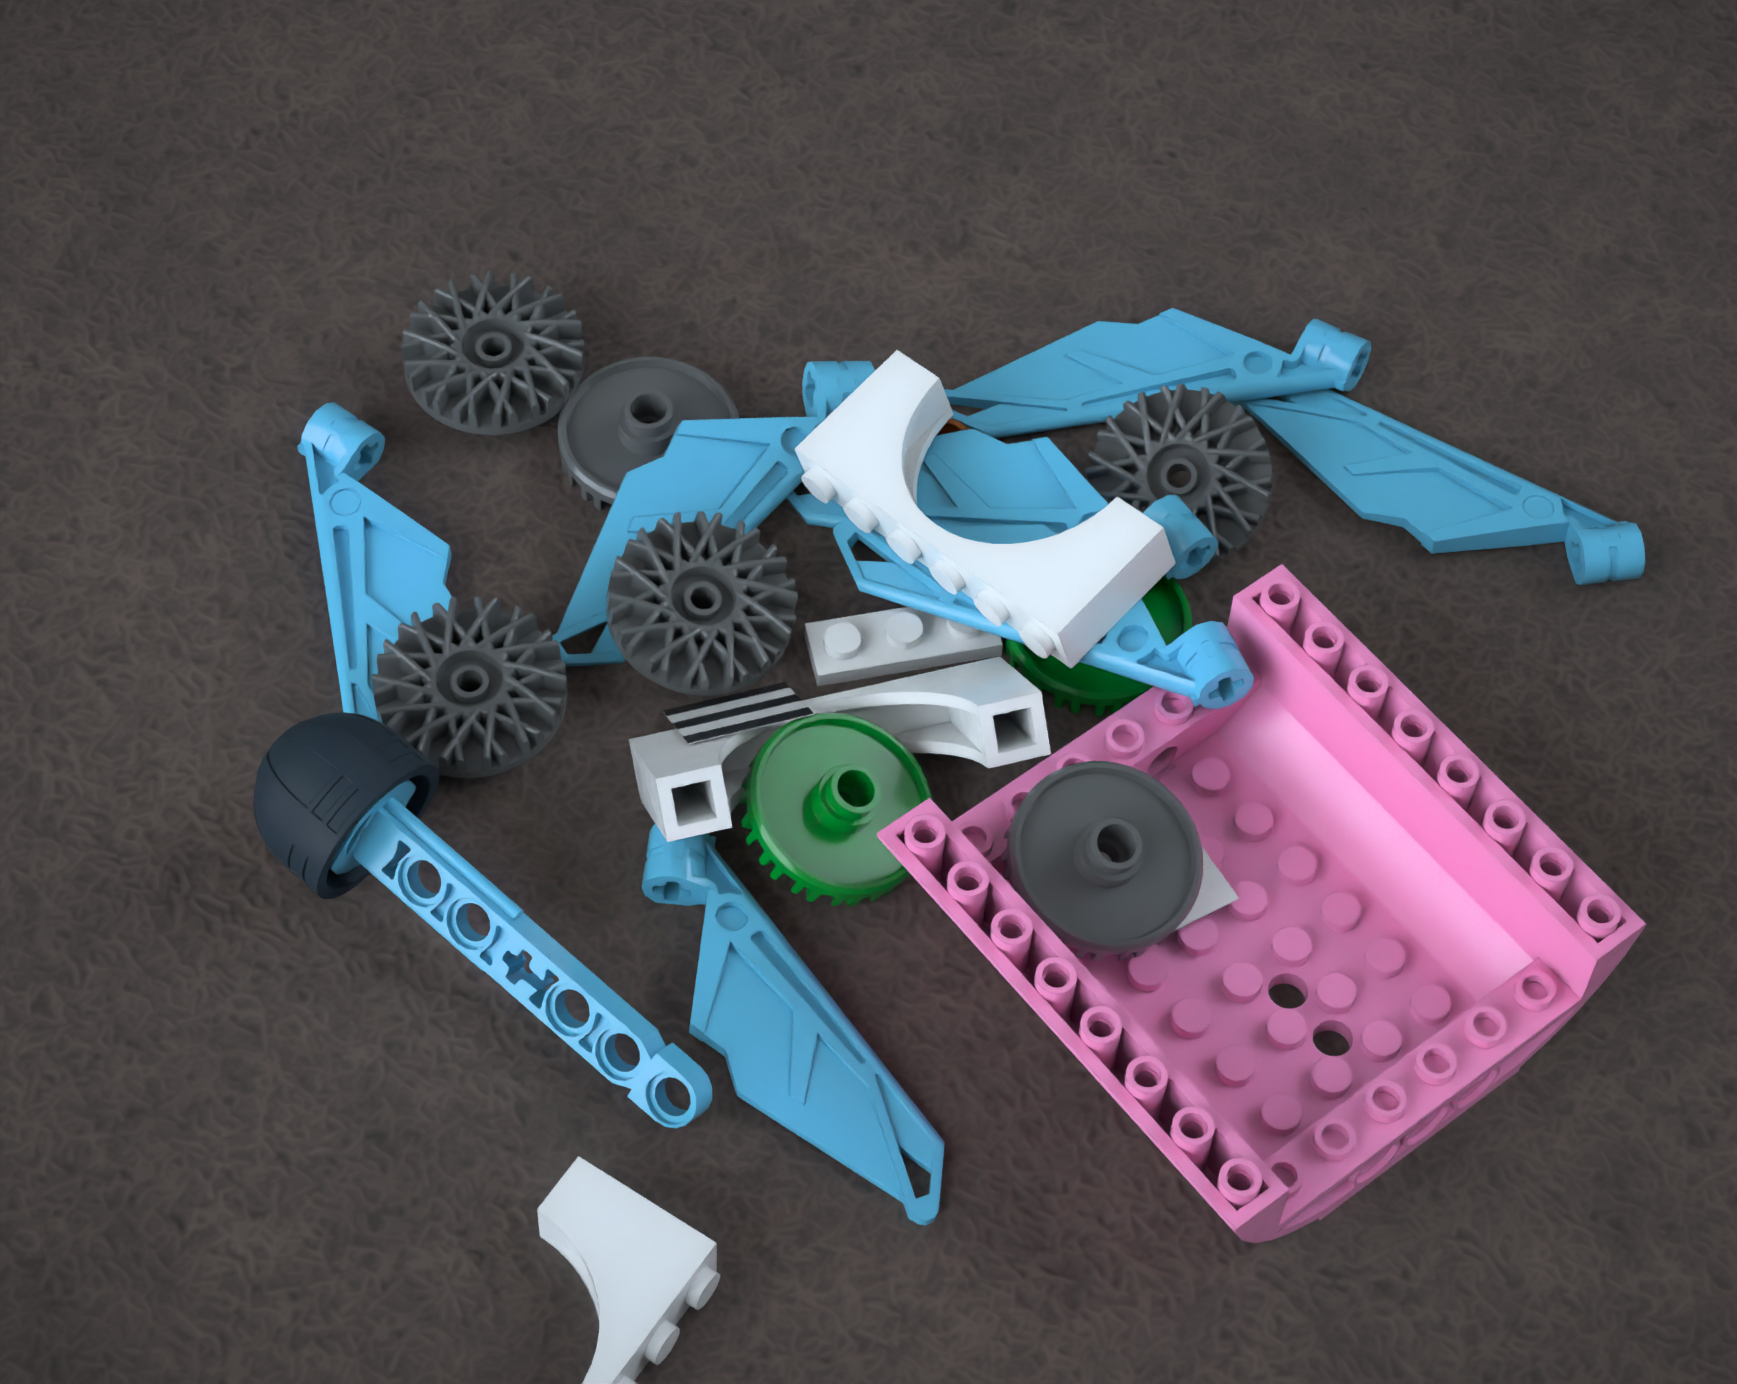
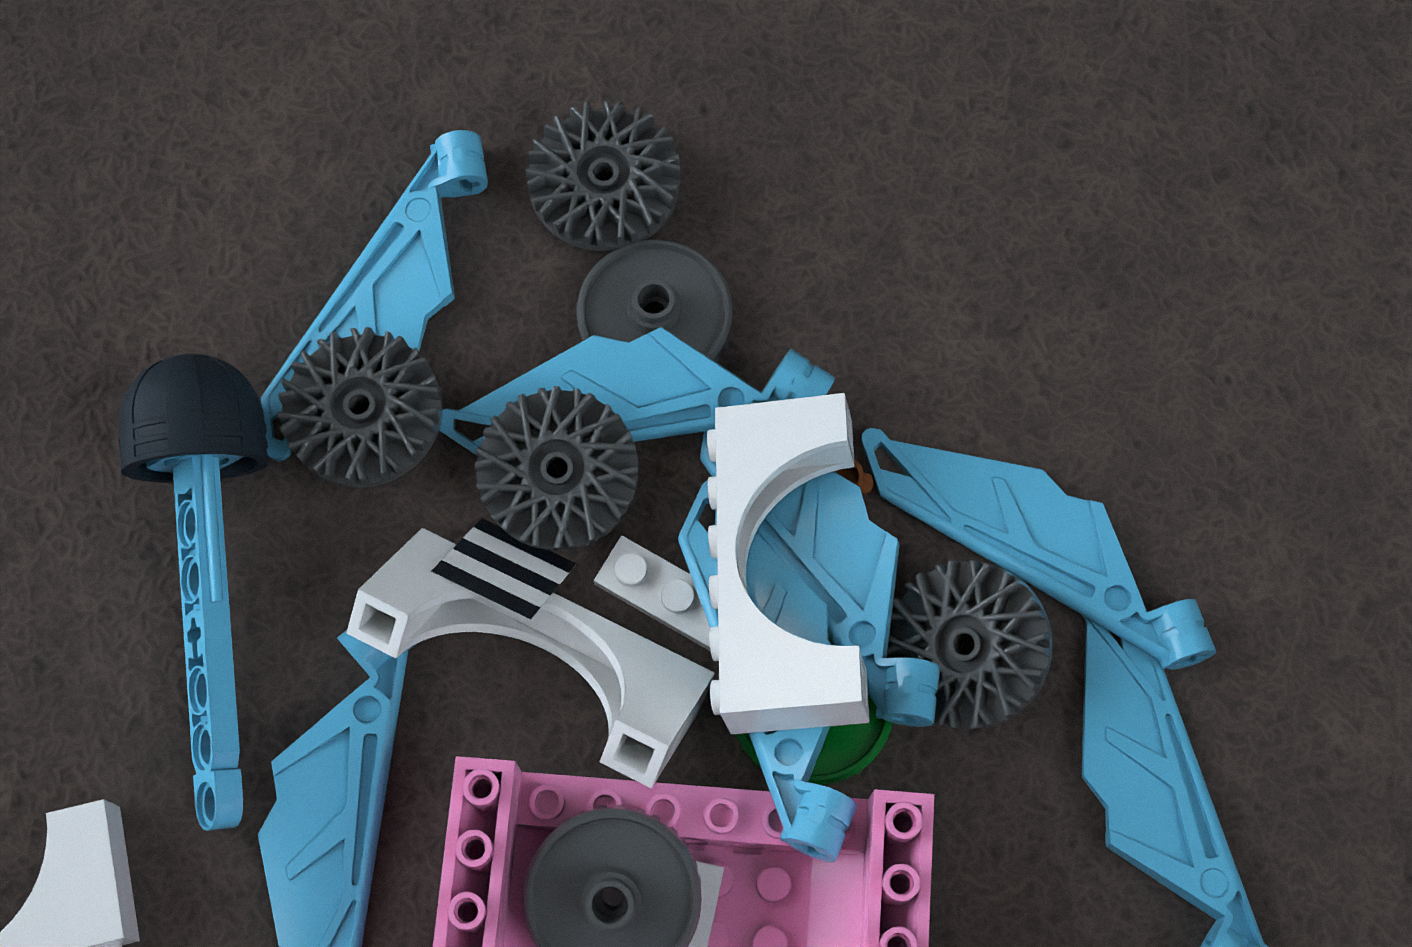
camera: 45 degrees right, 15 degrees up
(823, 796) = (496, 650): green wheel -> none

